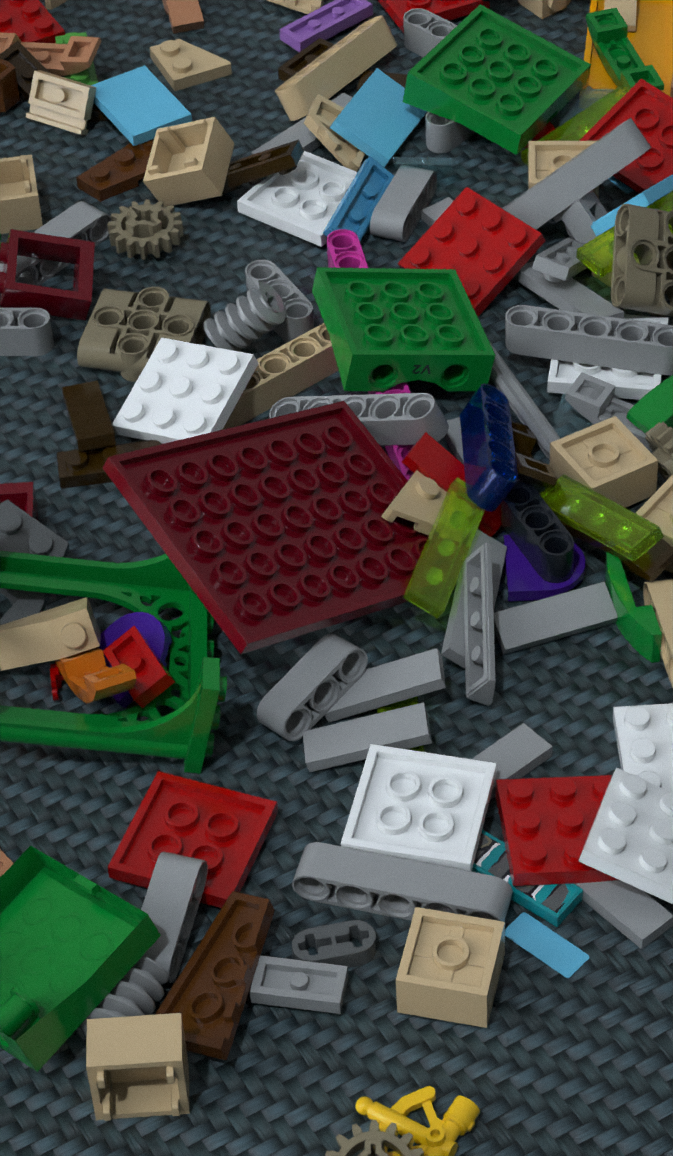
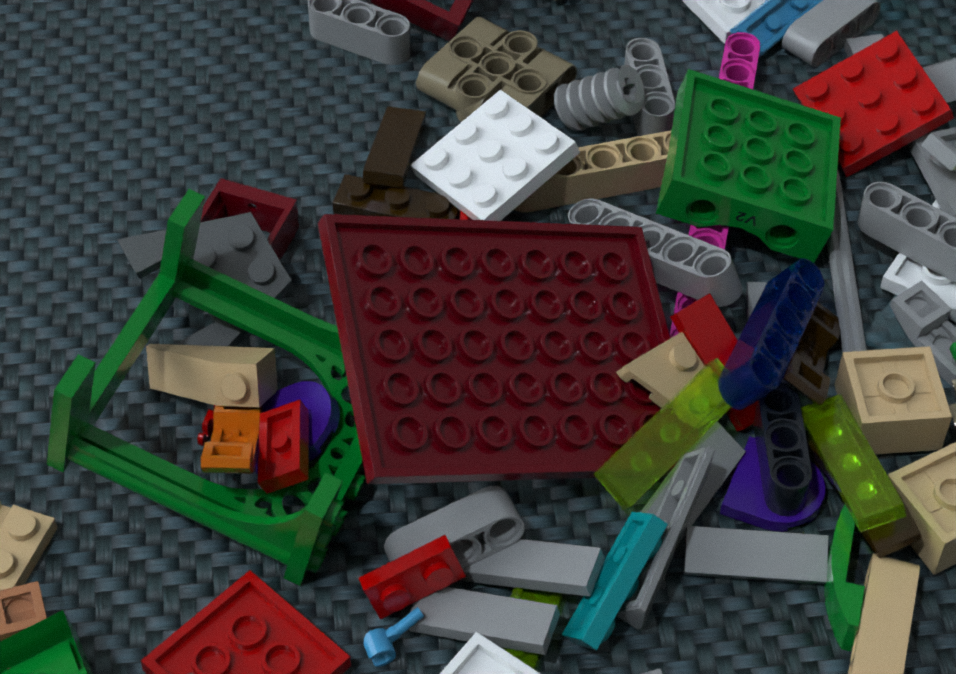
camera: 20 degrees right, 5 degrees up
(292, 784) = (379, 641): none -> dark azure hand
(296, 725) = (412, 577): none -> red plate
(461, 668) = (616, 581): none -> teal plate

